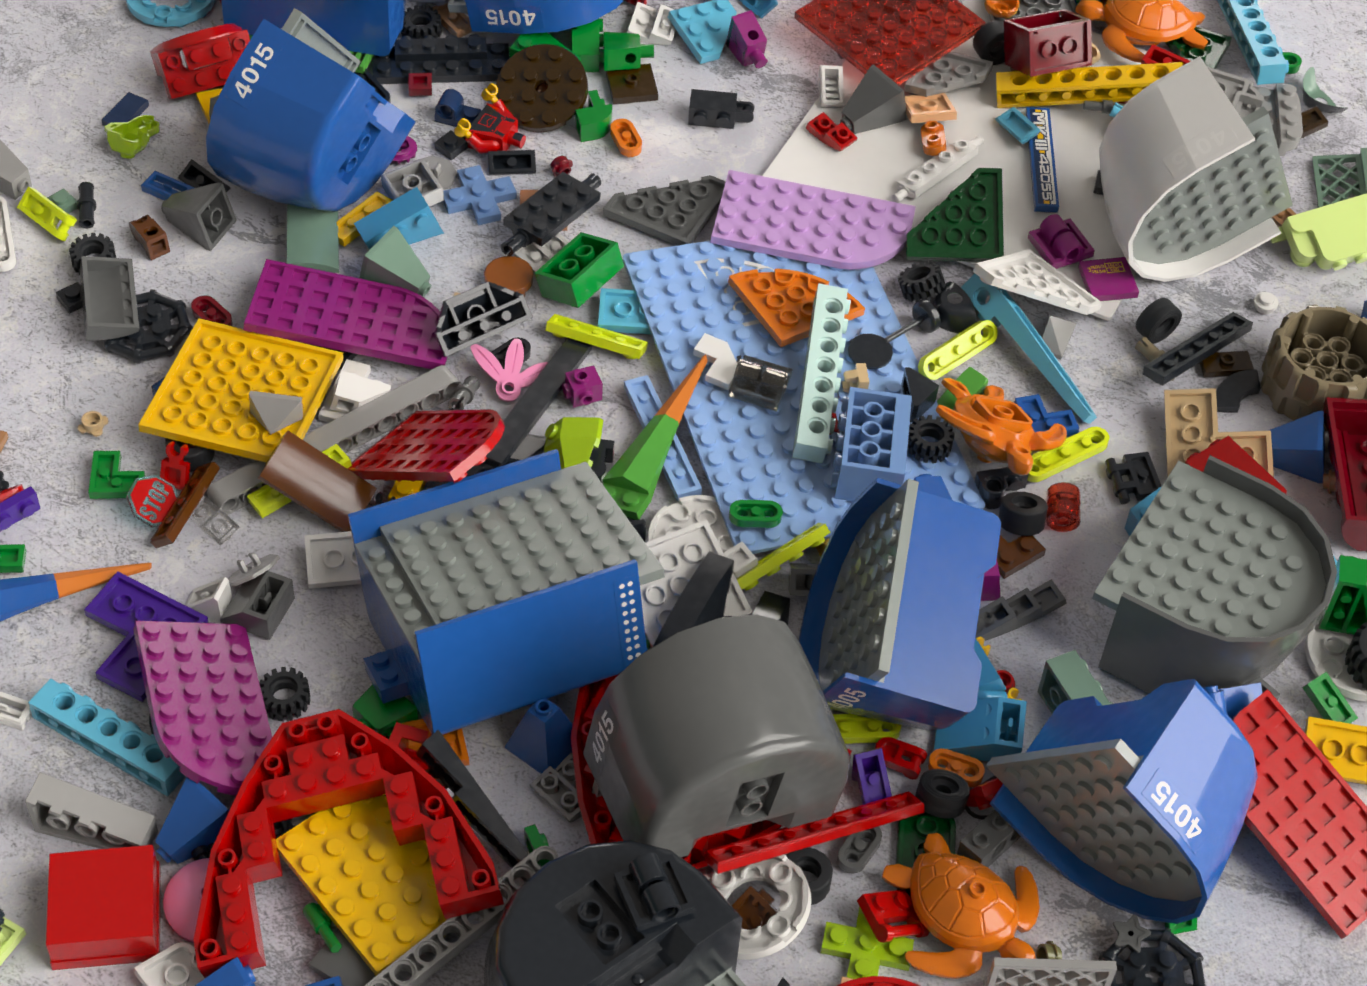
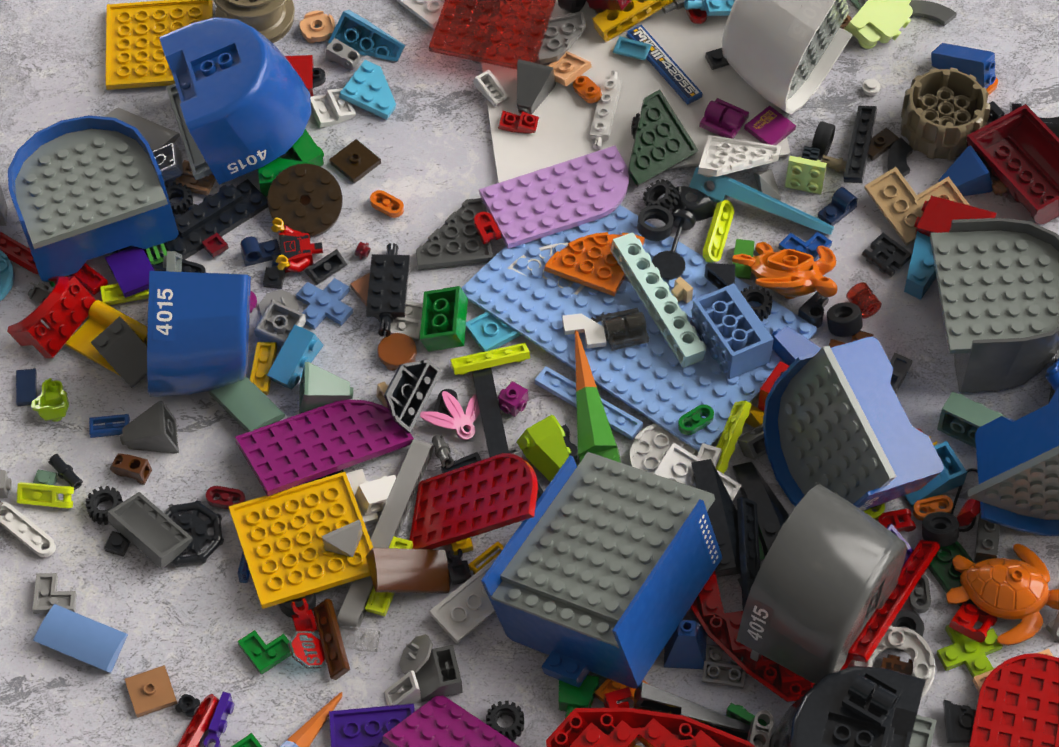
camera: 30 degrees left, 5 degrees up
(93, 423) = (213, 618): tan plate -> none
(198, 176) = (128, 405): black slope -> none
(594, 121) = (356, 202): green brick -> none
(624, 51) = (334, 140): green torso -> none
(706, 203) = (484, 221): none -> red plate
(718, 109) = (429, 148): black brick -> none
(747, 40) = (410, 85): magenta torso -> none
(896, 290) = (655, 212): none -> black tyre
(1073, 451) = (842, 255): neon yellow plate -> none
(1109, 341) = (806, 171): none -> yellowish green plate
(1125, 400) = (841, 205): none -> dark blue plate

